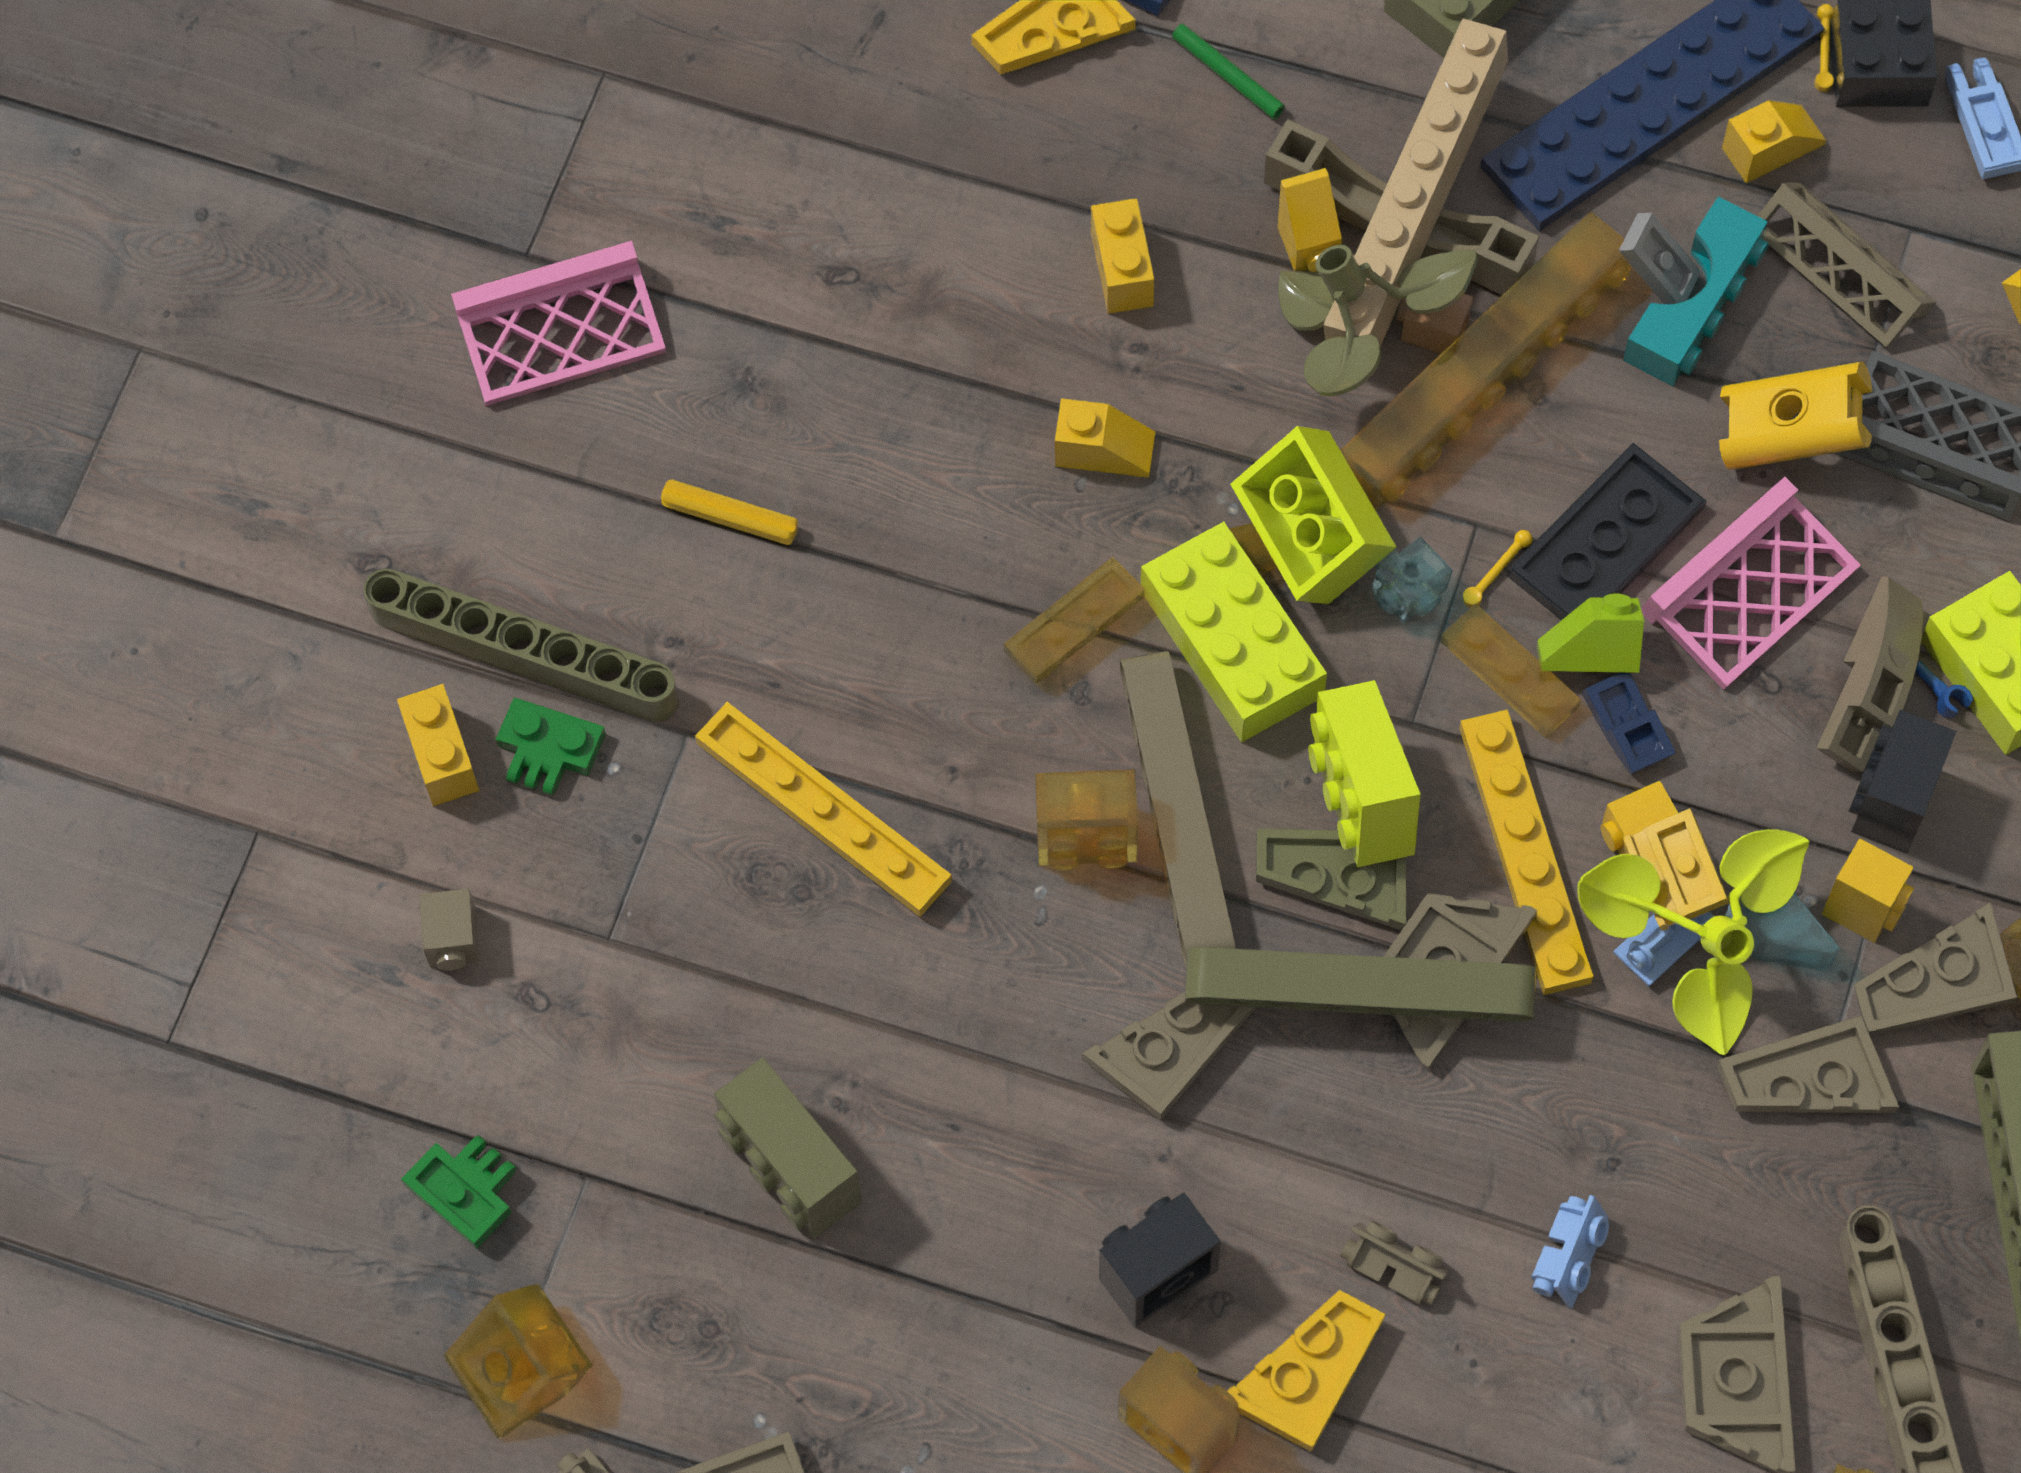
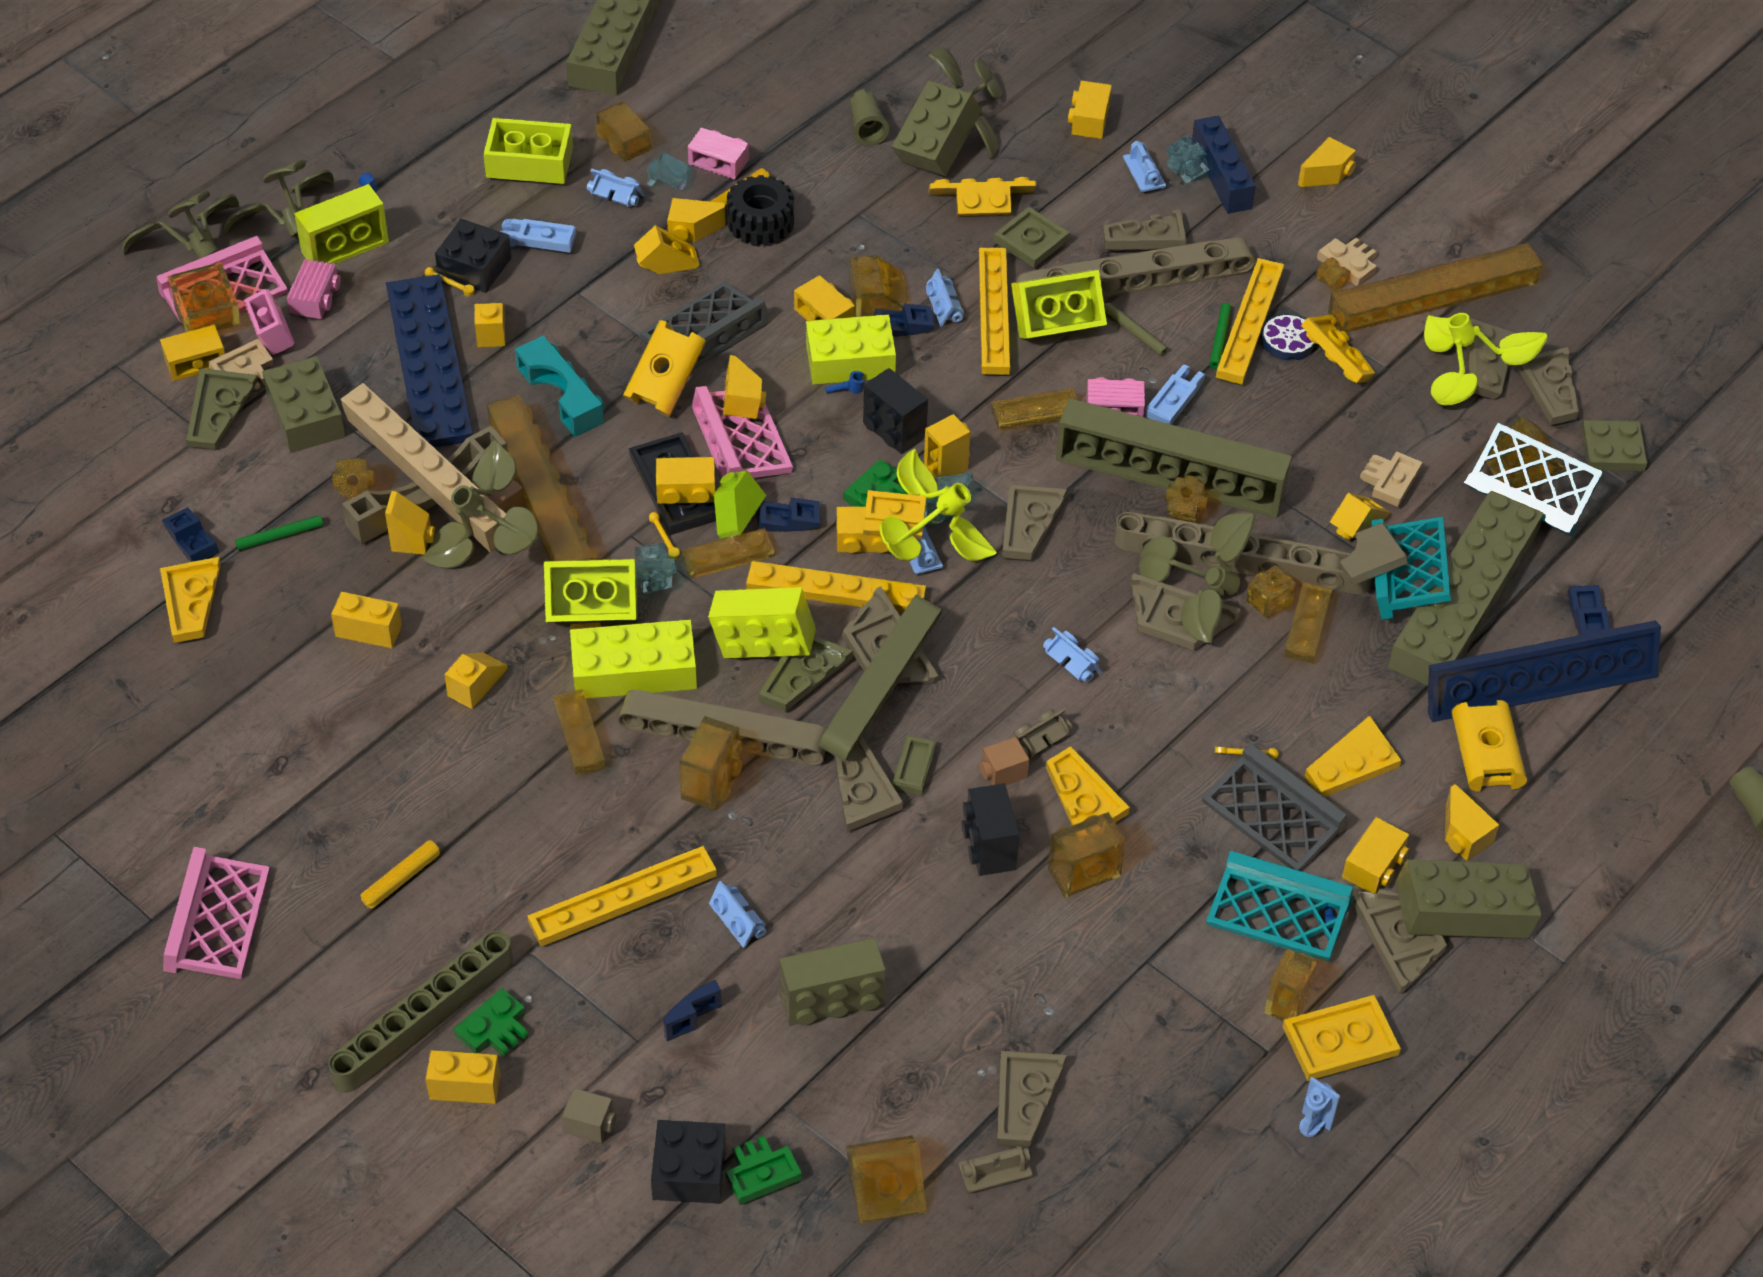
camera: 70 degrees left, 15 degrees down
(429, 1088) = (688, 1161): none -> black brick
(663, 978) = (684, 1014): none -> dark blue slope
(874, 955) = (731, 909): none -> light blue hinge
(1249, 1103) = (914, 765): none -> olive tile
(1306, 1229) = (1004, 762): none -> medium nougat brick
(1362, 110) = (358, 468): none -> clear yellow brick
(1595, 546) = (685, 480): none -> yellow brick
(1659, 259) = (535, 388): light grey plate -> none
(1742, 810) = (877, 478): none -> green hinge
(1817, 544) = (742, 390): none -> yellow slope
(1855, 251) = (584, 313): dark tan fence -> none
(1876, 1394) = (1202, 612): none -> olive plant
(1881, 675) = (822, 394): dark tan slope -> none
(1943, 978) = (1006, 443): dark tan wing -> none
(1977, 1299) = (1182, 507): none -> clear yellow brick

